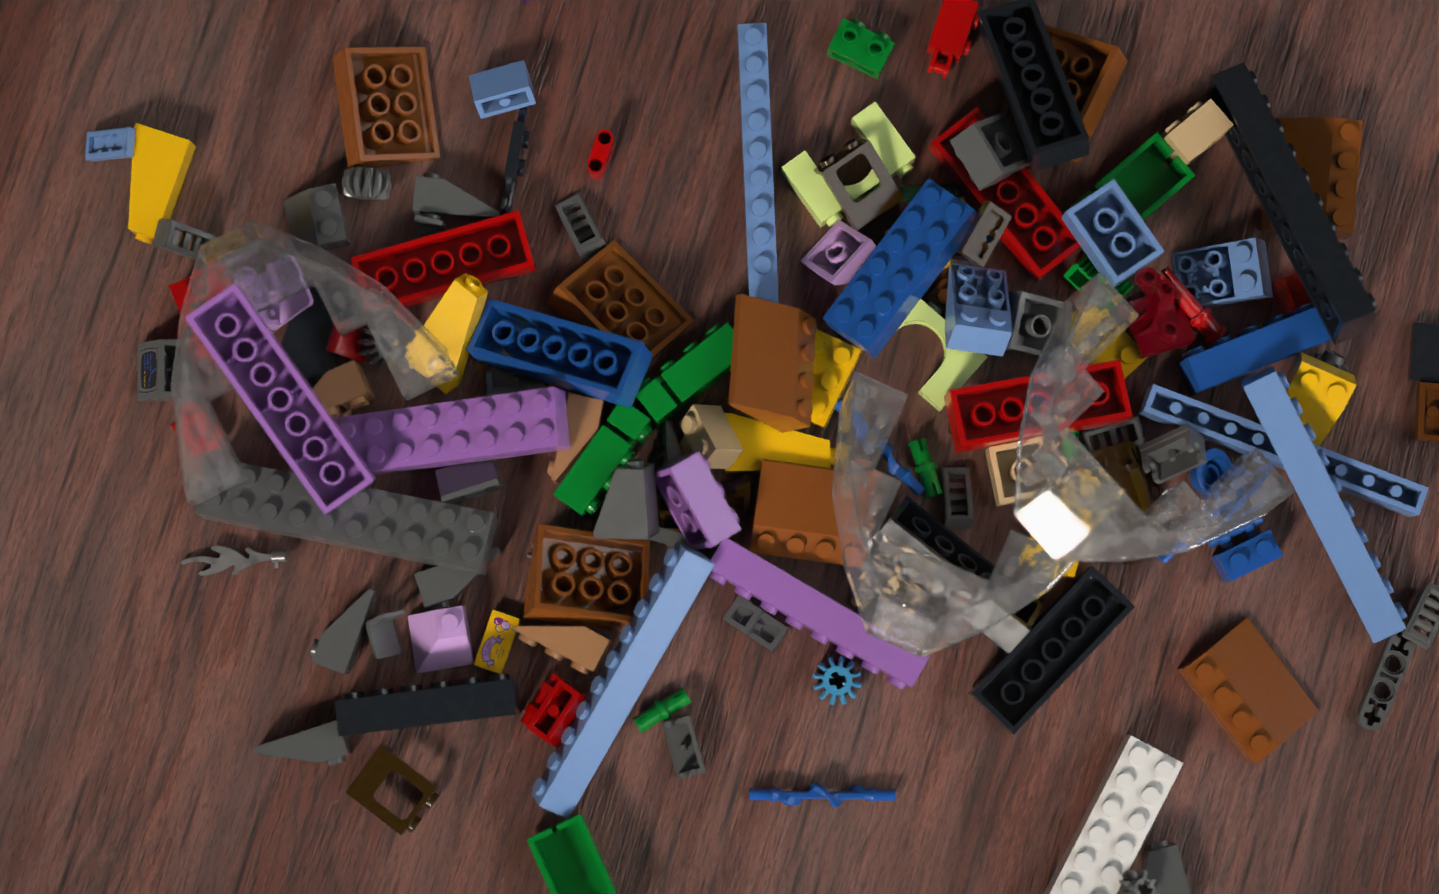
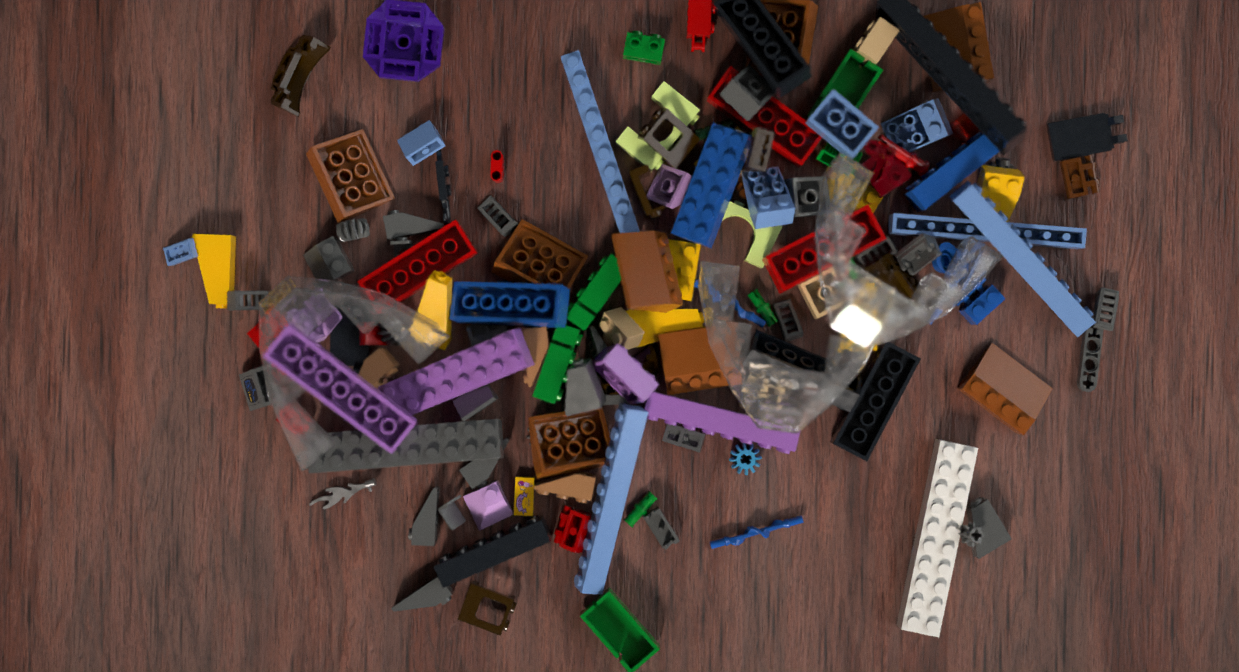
camera: 15 degrees left, 5 degrees up
(796, 224) = (635, 176): none -> dark brown window

